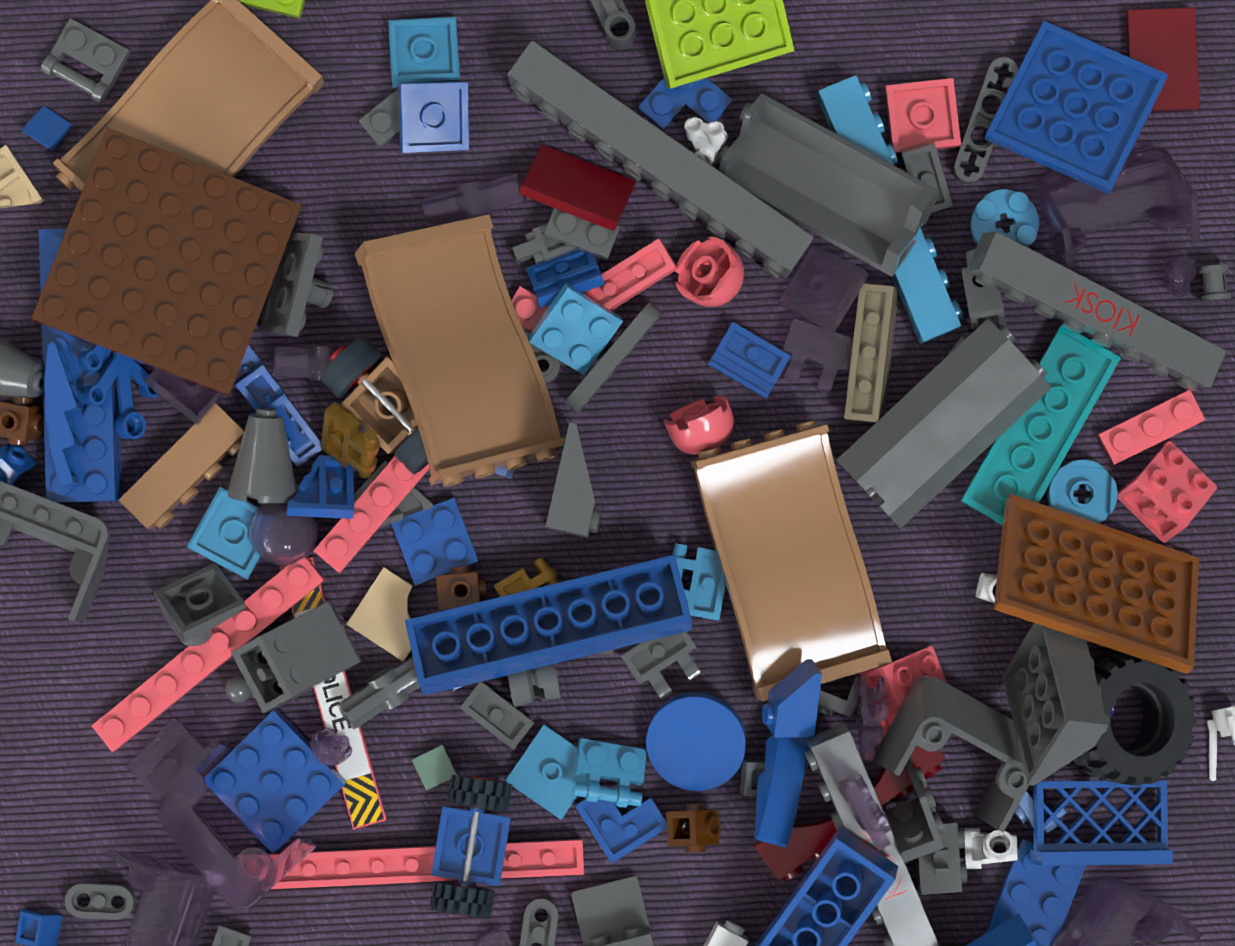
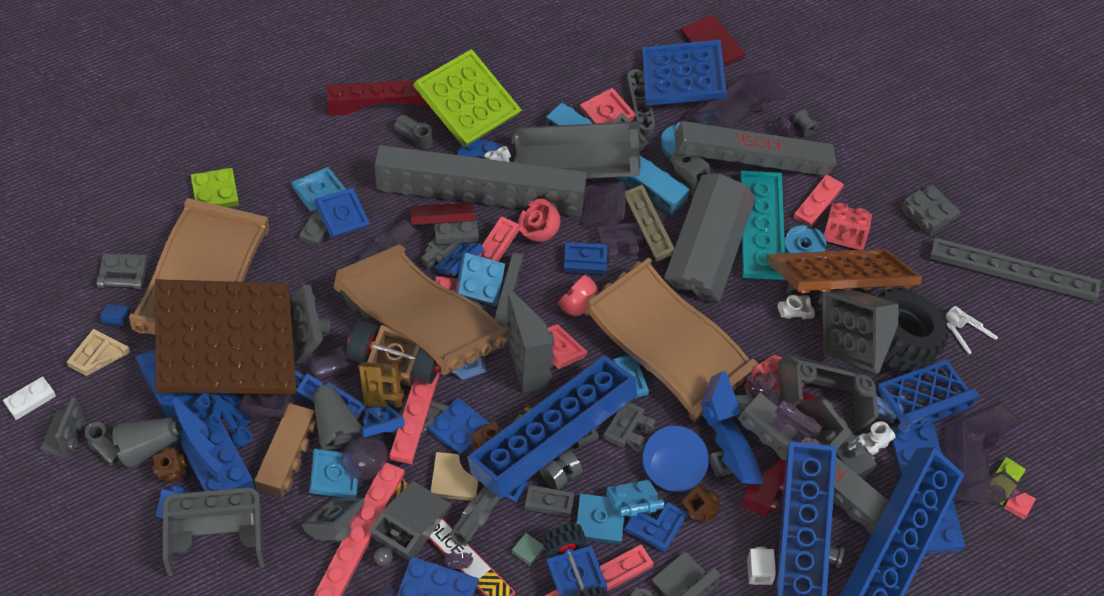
camera: 30 degrees left, 30 degrees down
(628, 491) = (566, 348): none -> coral plate

